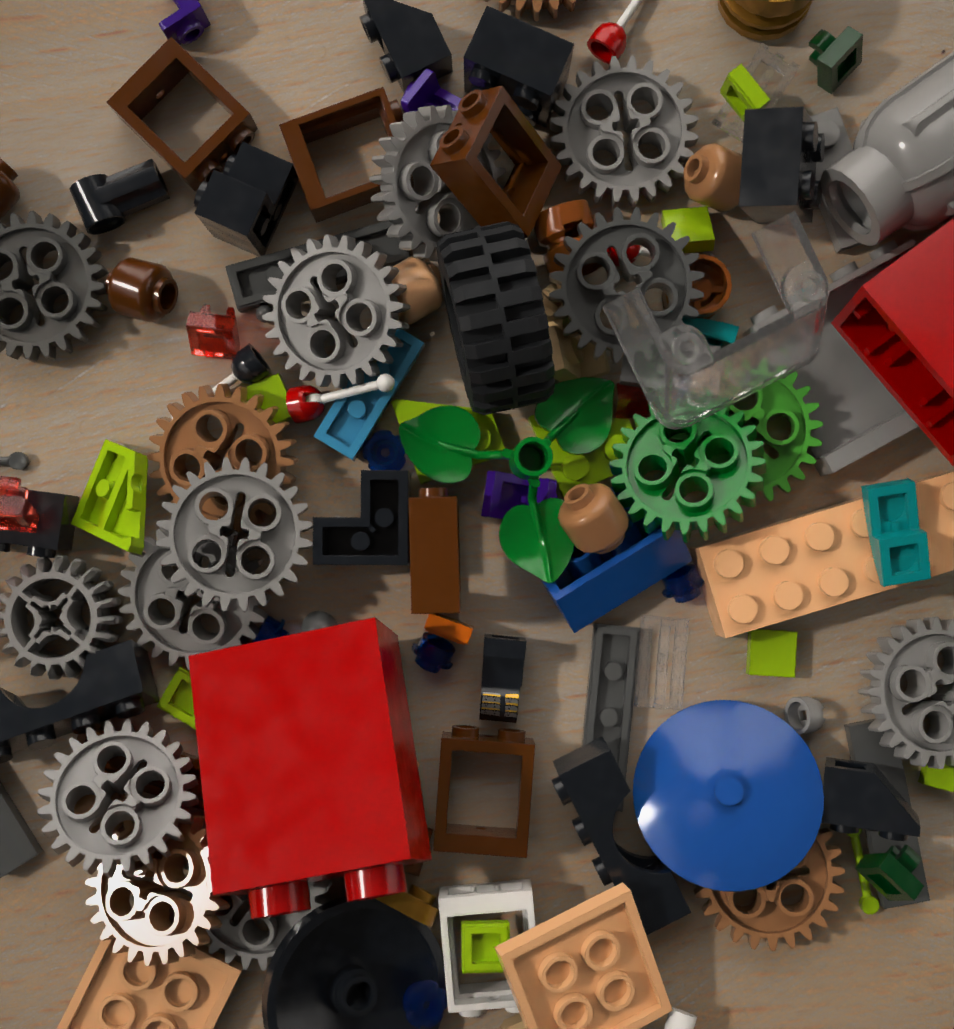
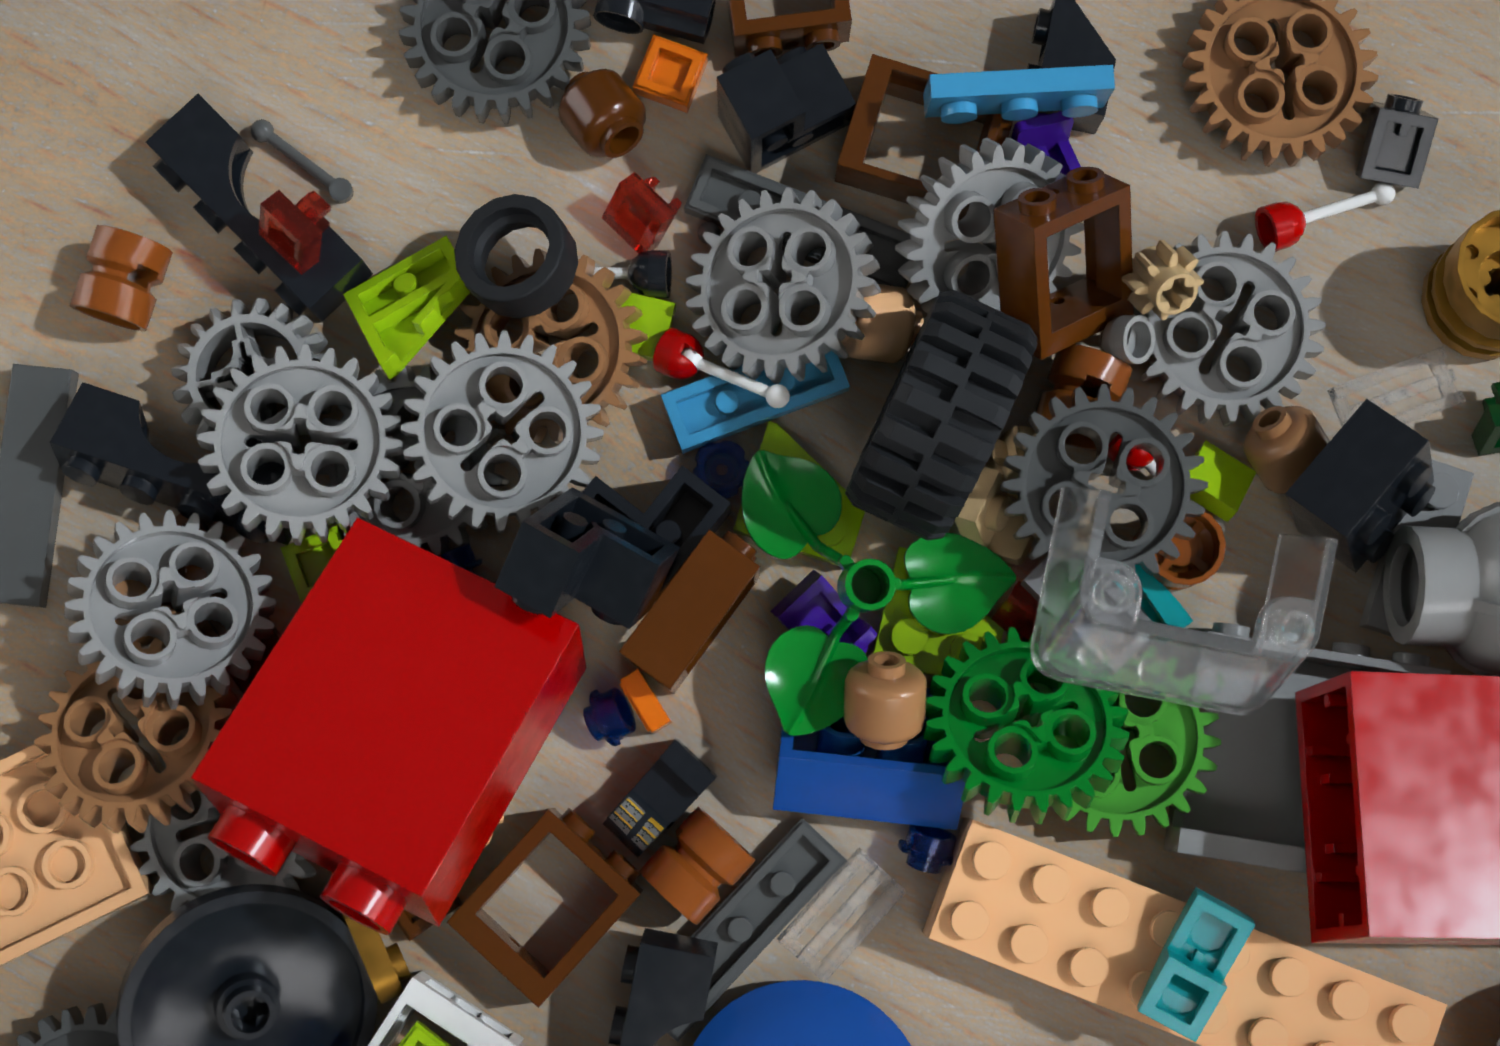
camera: 35 degrees right, 5 degrees down
(95, 602) = (296, 497): none -> light grey gear
(126, 419) = (492, 223): none -> black tyre
(163, 232) = (670, 73): none -> orange tile
(345, 570) = (589, 555): none -> black brick
(388, 80) = (1018, 93): none -> dark azure plate
(522, 60) = (1170, 175): black brick -> none
(555, 701) = (697, 866): none -> dark orange wheel
(565, 130) = (1163, 280): none -> tan gear
(571, 183) = (1129, 338): none -> light grey hinge
(743, 92) = (1382, 380): lime tile -> none
(771, 653) = (967, 997): lime tile -> none

